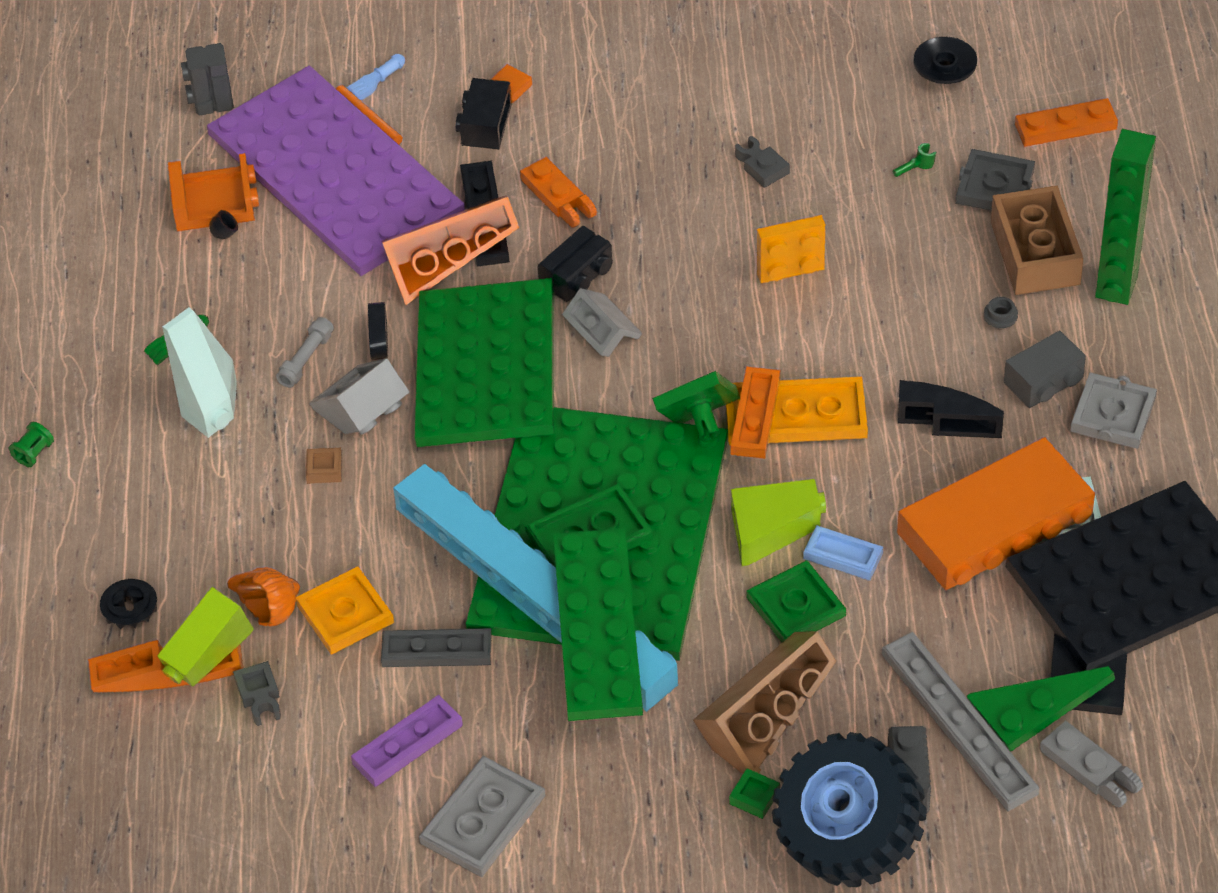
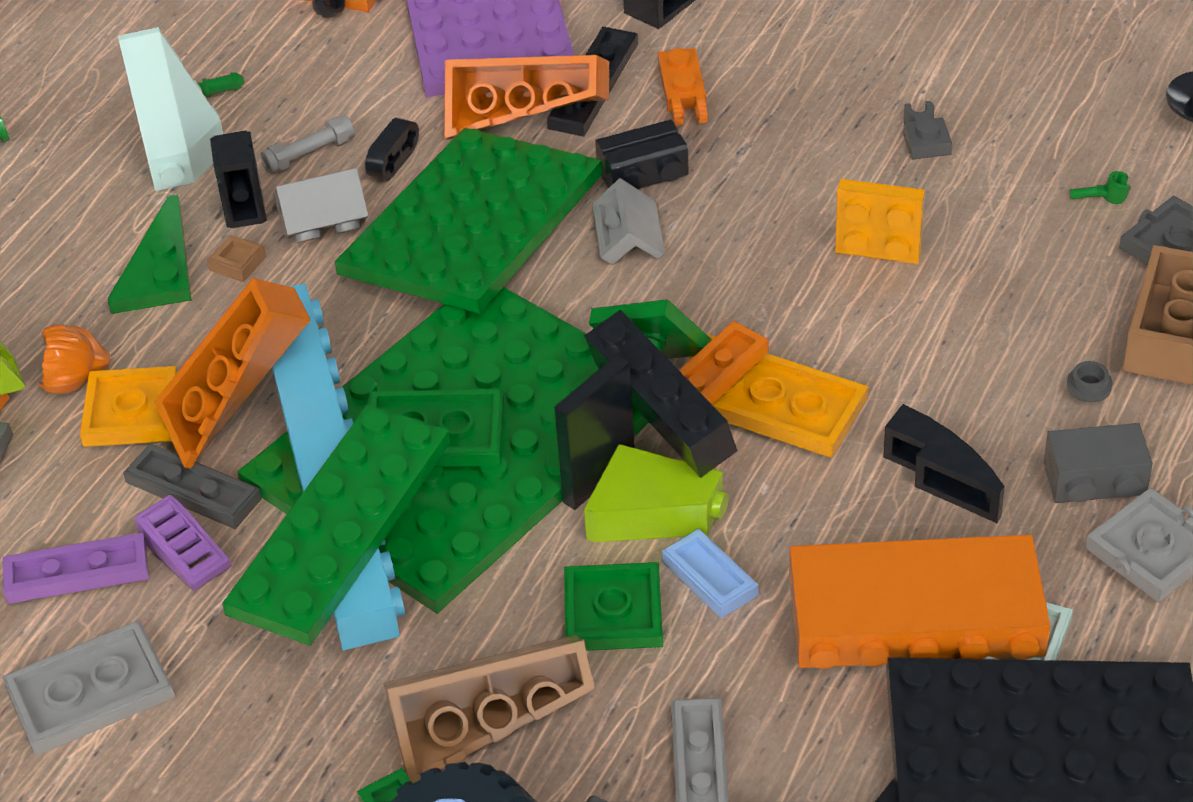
camera: 30 degrees right, 5 degrees down
(271, 500) = (158, 267): none -> green wing
(290, 402) = (238, 179): none -> black brick
(422, 560) = (229, 365): none -> orange wedge
(458, 676) = (166, 520): none -> medium lavender slope
(717, 487) = (591, 427): none -> black tile
(745, 440) = (665, 395): none -> black brick

